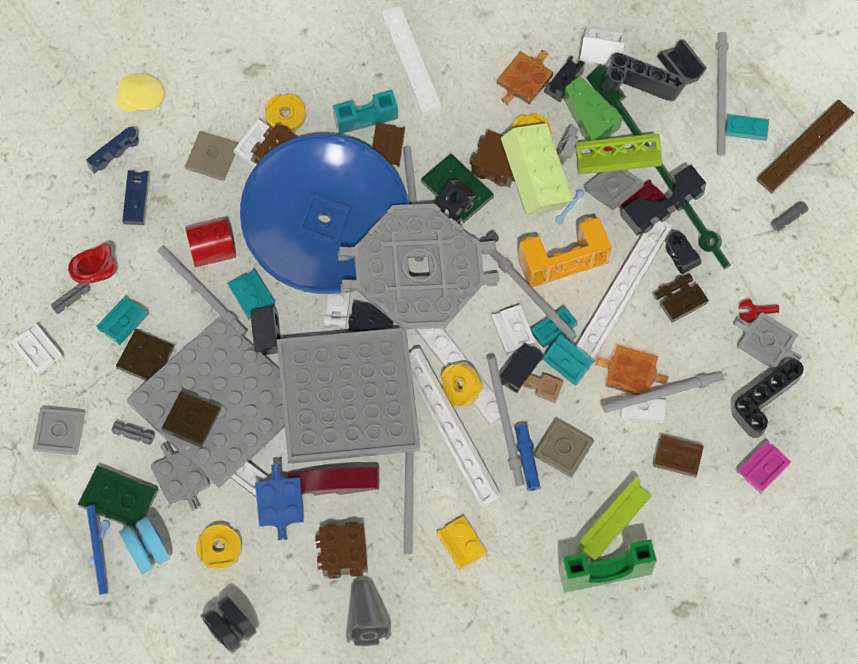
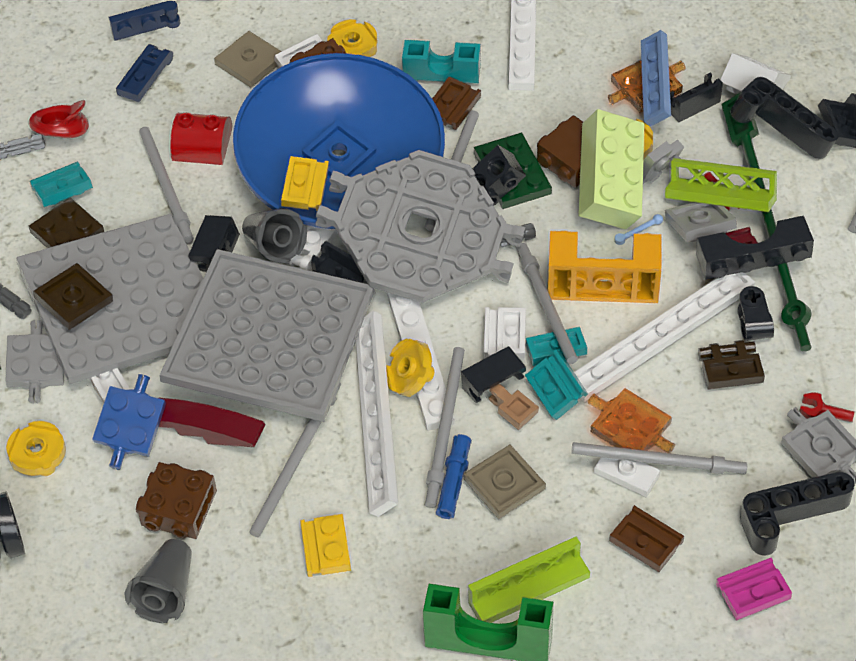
camera: 25 degrees right, 15 degrees down
(250, 293) = (219, 199): teal plate -> none
(312, 311) = (276, 234): none -> dark grey cone
(320, 263) = (304, 183): none -> yellow plate
(534, 75) = (655, 78): none -> medium blue plate
(591, 111) = (710, 134): bright green wedge -> none

